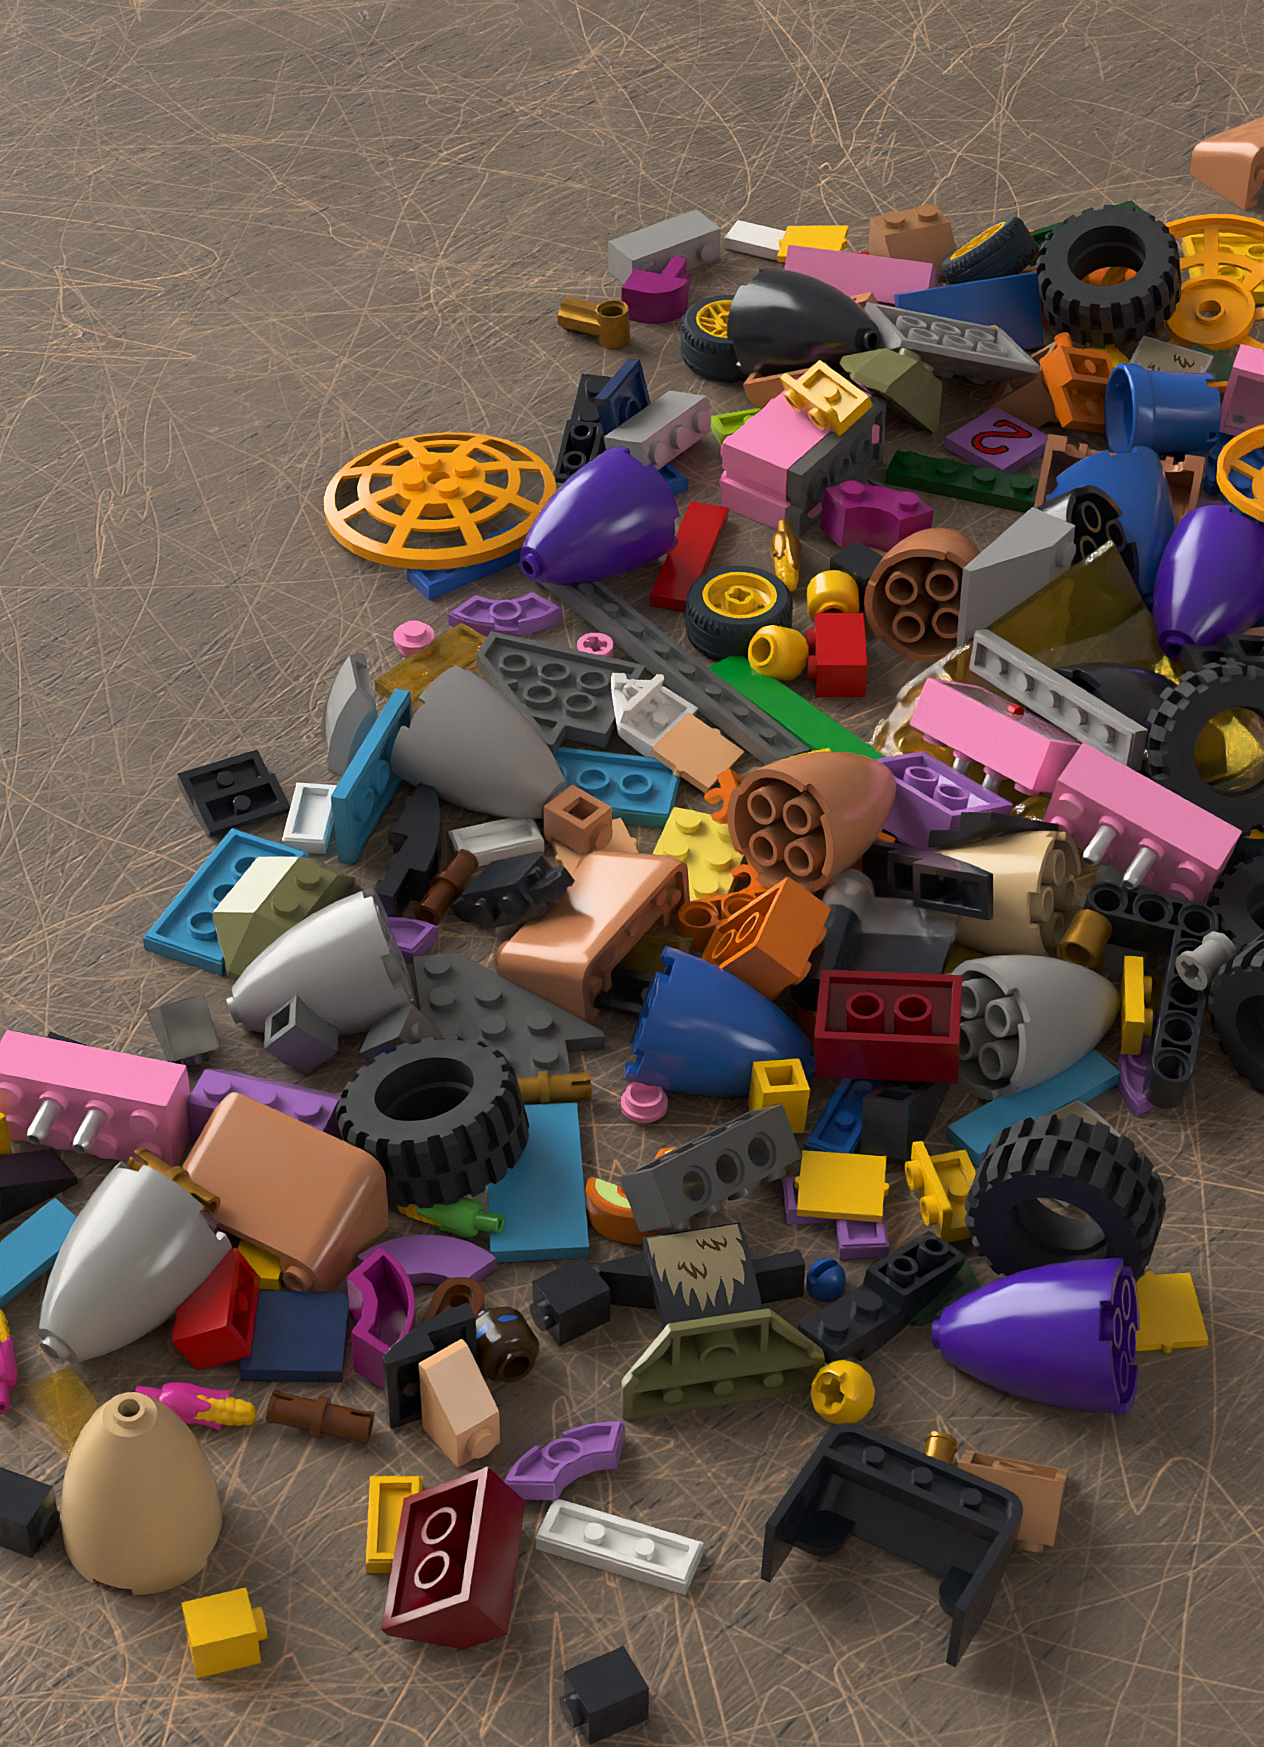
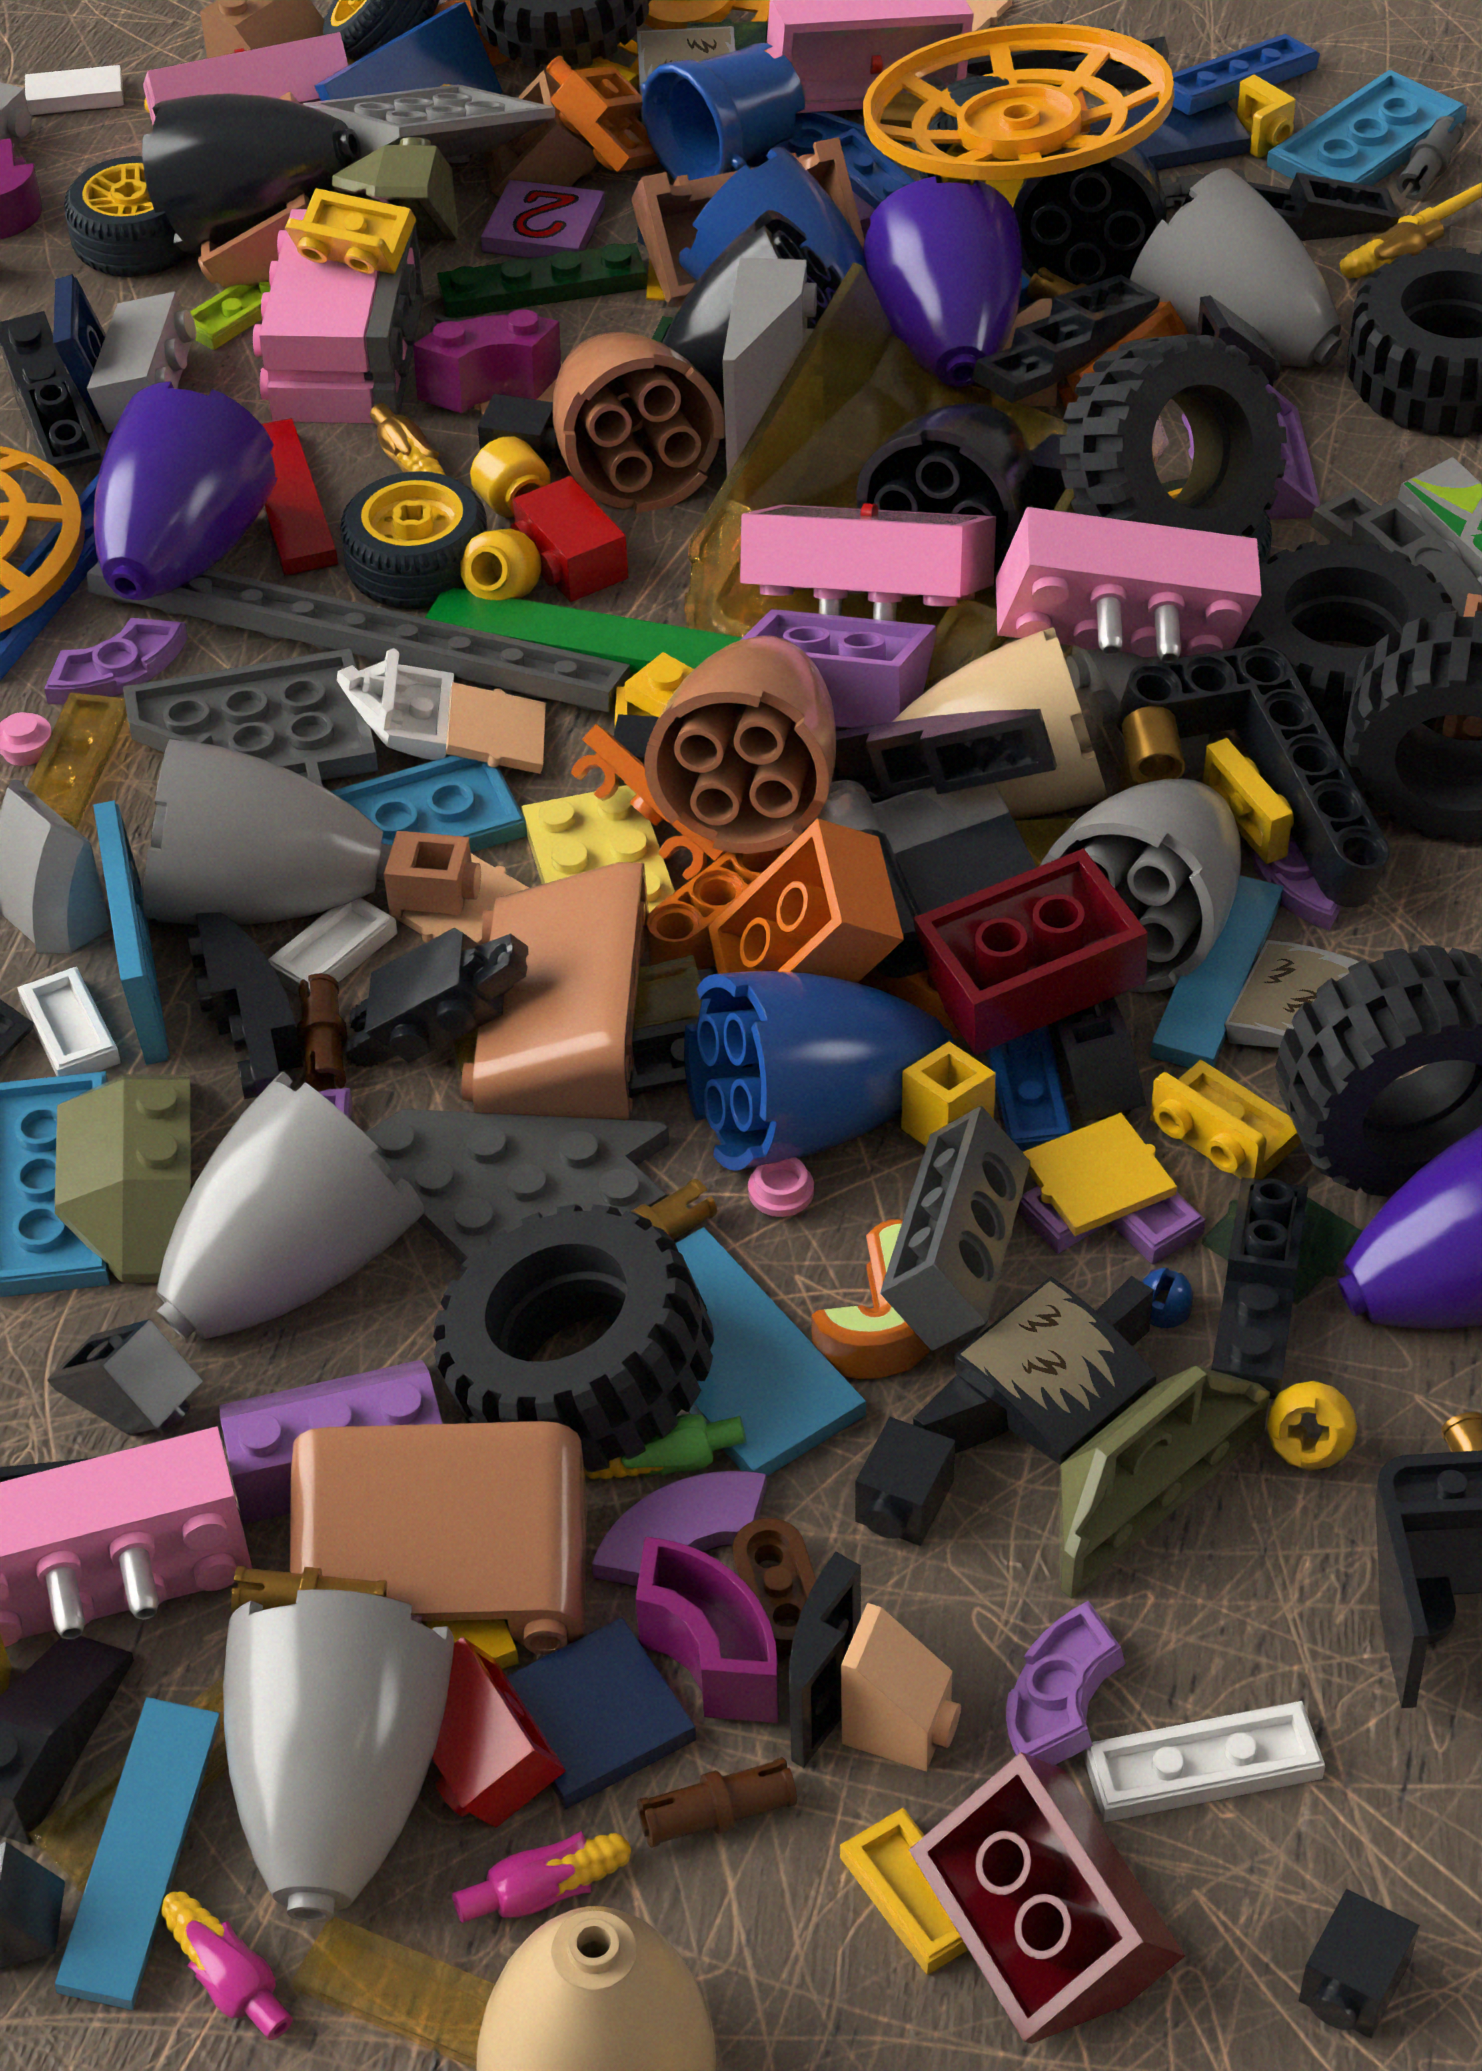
camera: 30 degrees left, 5 degrees up
(302, 1042) = (310, 1324): dark grey brick -> none
(396, 1029) = (429, 1255): dark grey brick -> none
(505, 1344) = (888, 1572): dark brown head -> none
(596, 644) = (265, 648): bright pink bush -> none
(814, 236) = (127, 68): yellow piece -> none
(985, 825) = (953, 665): black slope -> none
(1057, 699) = (912, 475): light grey tile -> none
(1204, 962) = (1318, 717): light grey bush -> none

